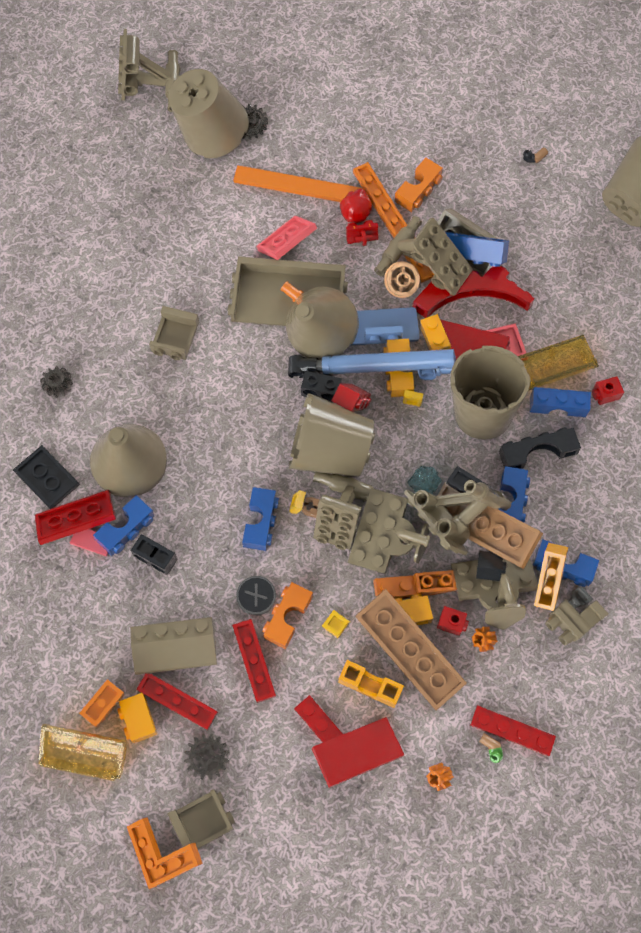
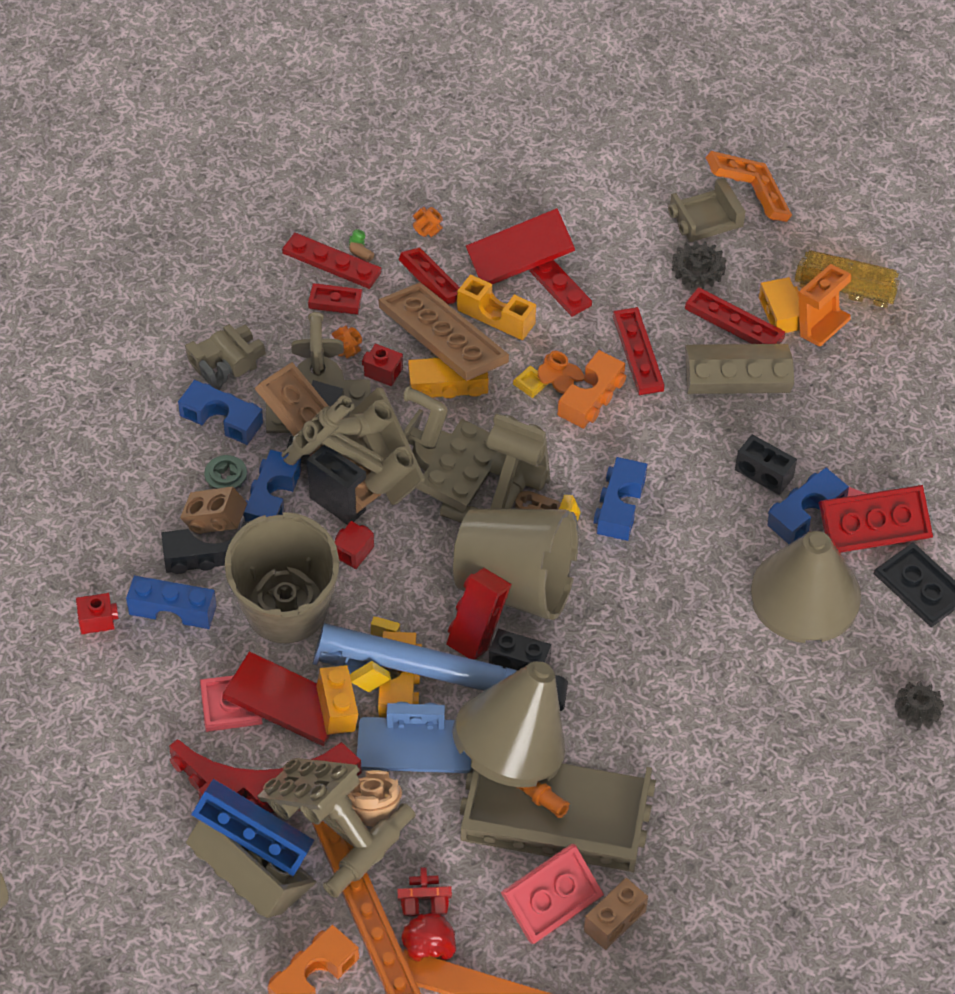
camera: 175 degrees left, 15 degrees down
(174, 333) = (740, 759): dark tan panel -> none
(248, 230) = (615, 913): none -> medium nougat brick
(256, 595) = (631, 419): black tile -> none
(312, 630) = (559, 372): none -> orange plate
(418, 346) = (370, 676): none -> yellow tile
(420, 583) = (458, 403): orange slope -> none
(425, 479) = (388, 518): clear light blue brick -> none
(427, 718) = (430, 274): none -> red plate
(446, 461) = (354, 544): none -> red brick
(501, 686) = (335, 298): none -> red plate
(549, 470) = (213, 510): none -> medium nougat brick
(551, 576) = (245, 377): light orange brick -> none
(555, 508) = (218, 466): none -> sand green gear
(558, 361) = (161, 649): clear yellow container -> none

